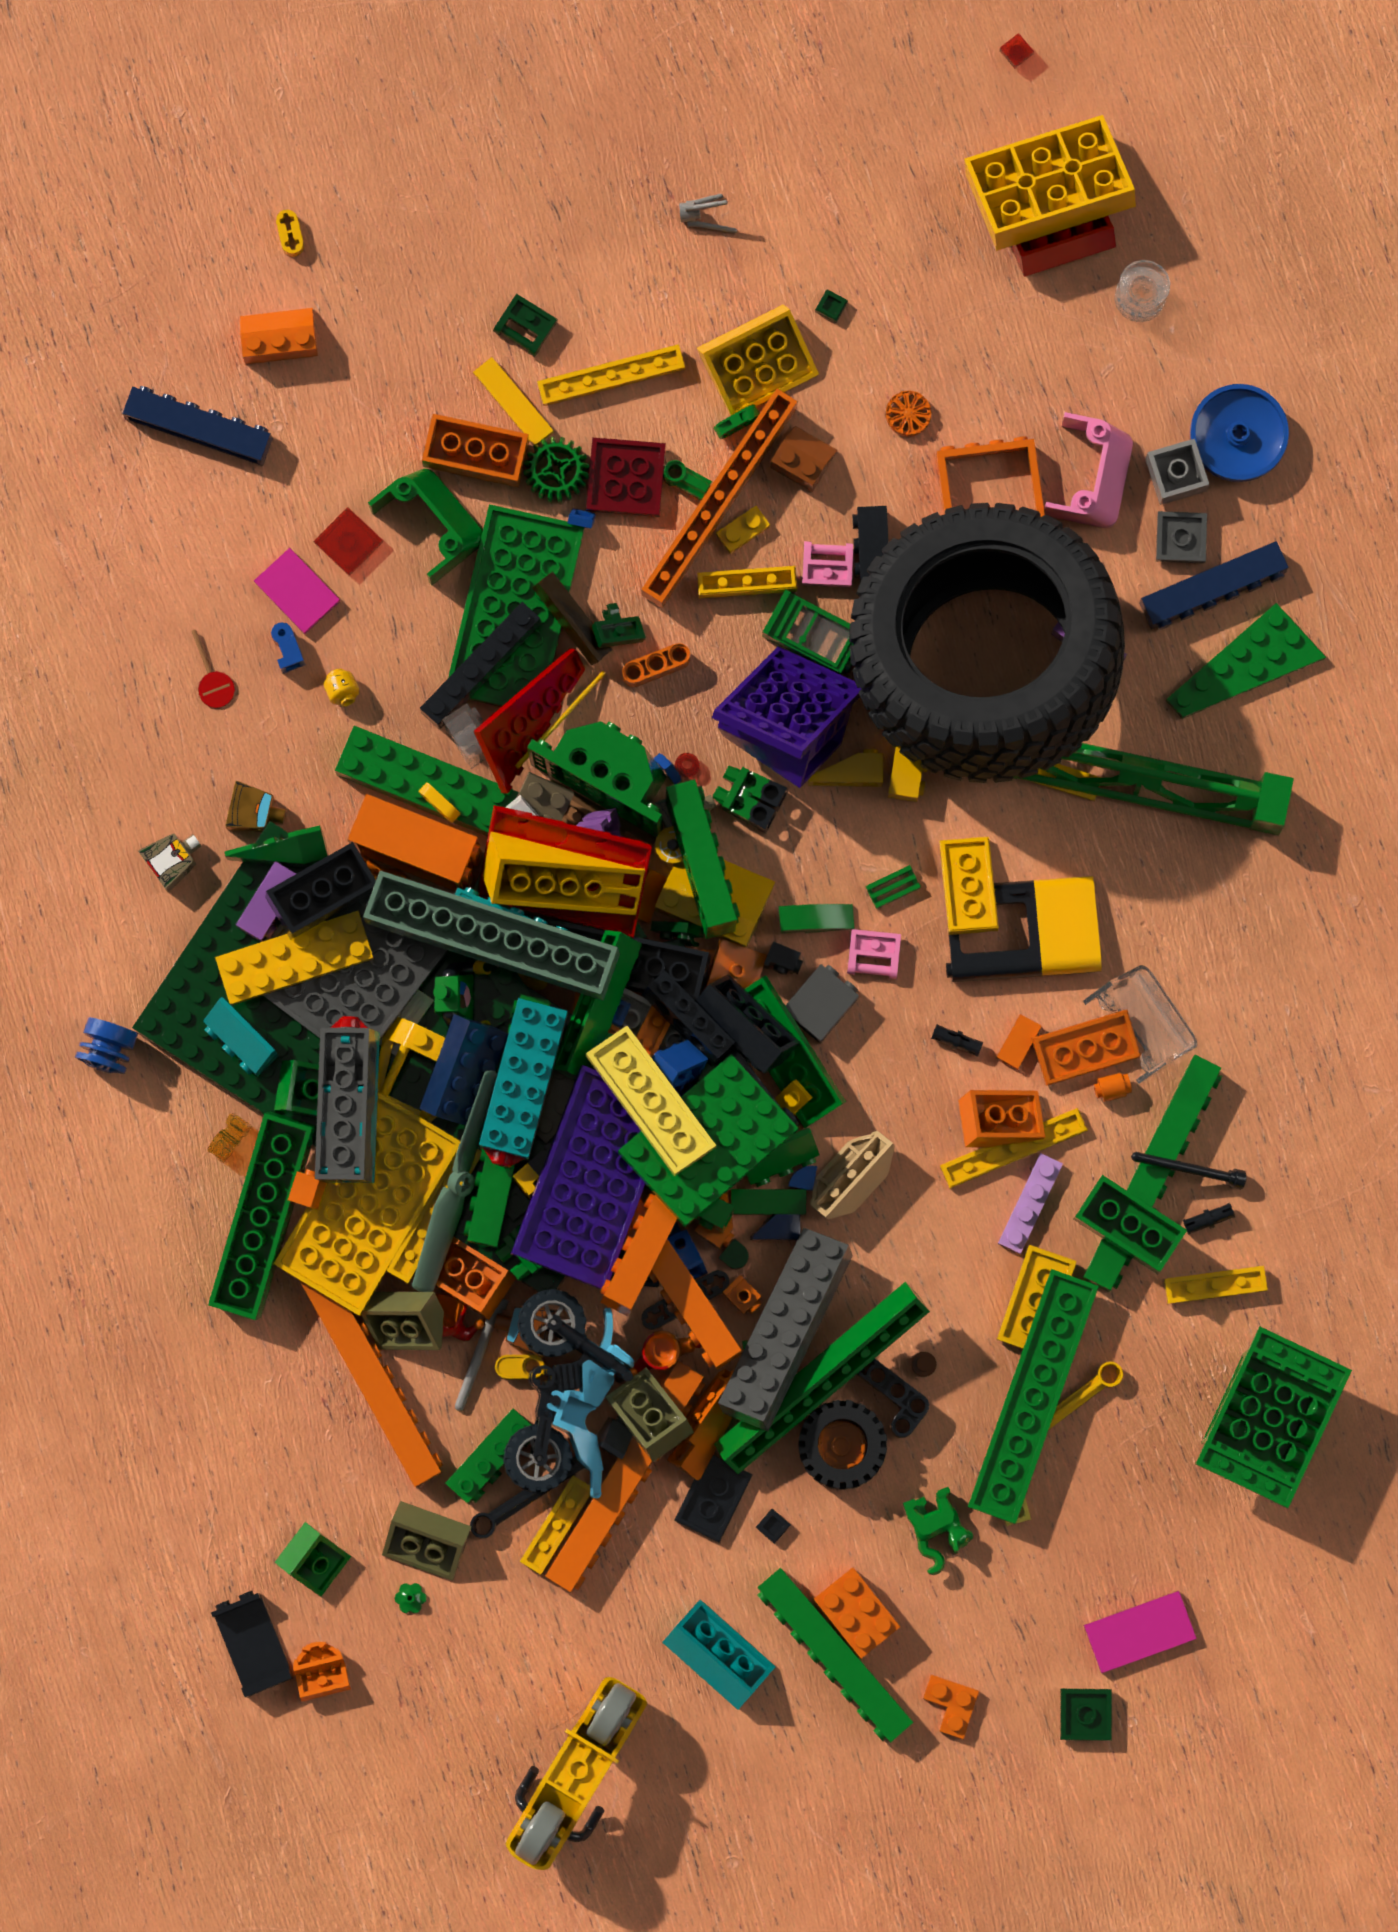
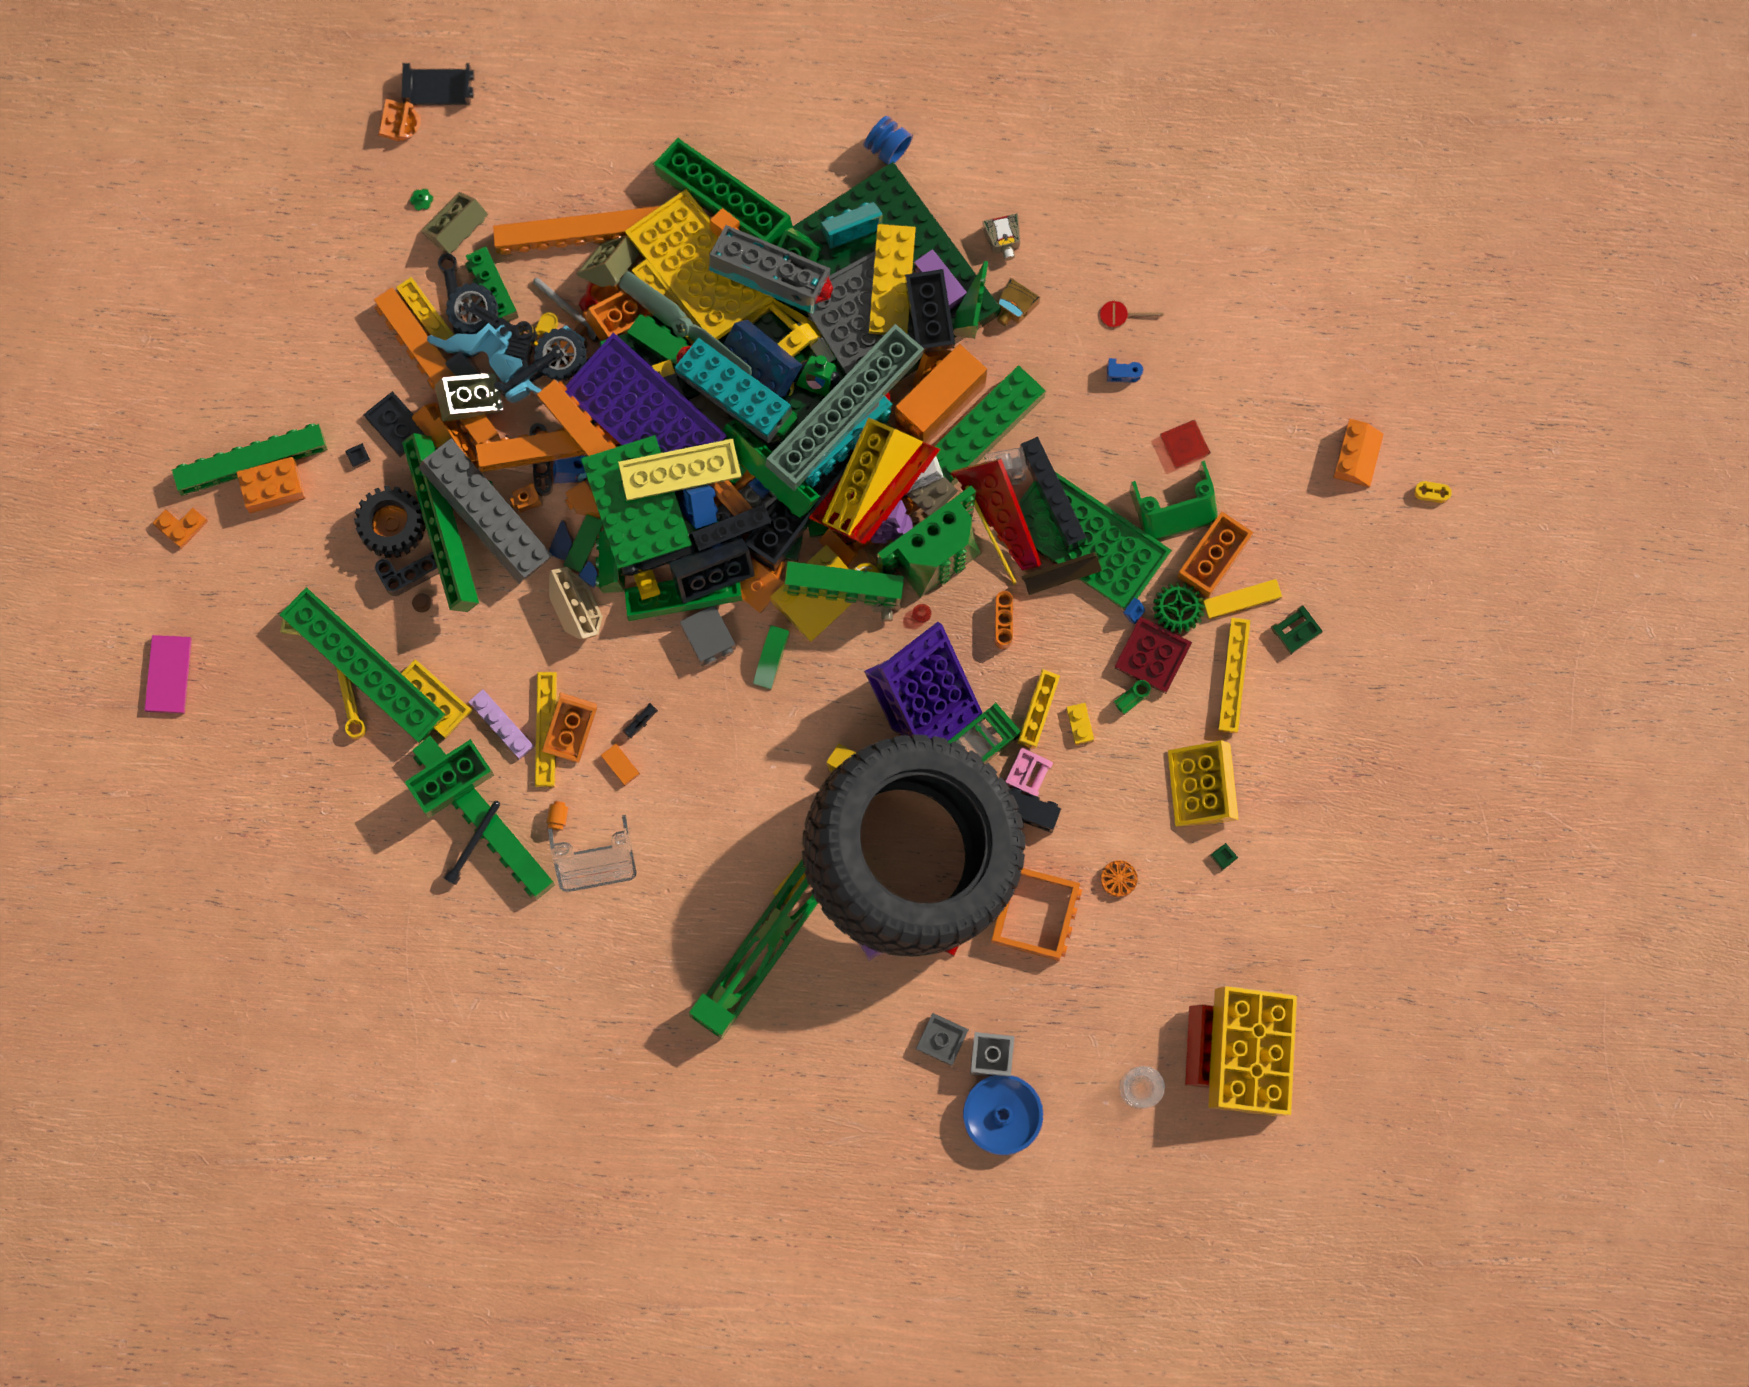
camera: 110 degrees right, 5 degrees down
(197, 426) = (1312, 371): dark blue brick -> none
(230, 1137) = (790, 201): clear yellow leg -> none
(297, 591) = (1163, 395): dark pink tile -> none
(312, 1559) = (476, 143): green slope -> none
(341, 687) = (1078, 396): yellow head -> none
(439, 802) = (962, 422): yellow beam -> none
(574, 1776) = (246, 248): yellow piece -> none
(617, 630) = (1040, 602): dark green plate -> none
(662, 1351) = (509, 422): orange piece -> none
(668, 768) = (925, 596): blue tile -> none
(682, 930) = (804, 551): dark green plate -> none
(691, 211) = (1336, 783): light grey plant -> none
(716, 1216) = (583, 495): green brick -> none
(719, 498) = (1109, 713): orange brick -> none
(719, 1654) = (286, 383): teal slope -> none
(735, 1255) = (556, 505): dark green tile -> none
(736, 421) = (1162, 751): green piece -> none
(743, 797) = (877, 645): green hips -> none
(783, 959) = (751, 622): black brick -> none
(803, 458) = (1116, 787): dark orange slope -> none
(858, 770) = (866, 727): yellow slope -> none
(877, 946) = (733, 691): bright pink plate -> none
(911, 877) = (771, 705): green tile -> none
(934, 1523) = (307, 563): green animal -> none
(968, 885) = (747, 773): yellow tile -> none
(1016, 50) = (1369, 1075): clear red plate -> none
(1059, 928) = (691, 826): piece -> none
(1085, 1714) = (129, 612): dark green plate -> none
(1086, 1047) = (594, 809): orange tile -> none
(1102, 505) = (1010, 1005): bright pink windscreen -> none
(1209, 1218) = (433, 844): black pin -> none
(1214, 585) = (895, 1047): dark blue brick -> none
(1215, 1284) = (384, 829): yellow plate -> none
(1256, 657) = (829, 1058): green wing -> none
(1272, 1416) = (265, 818): green wedge -> none

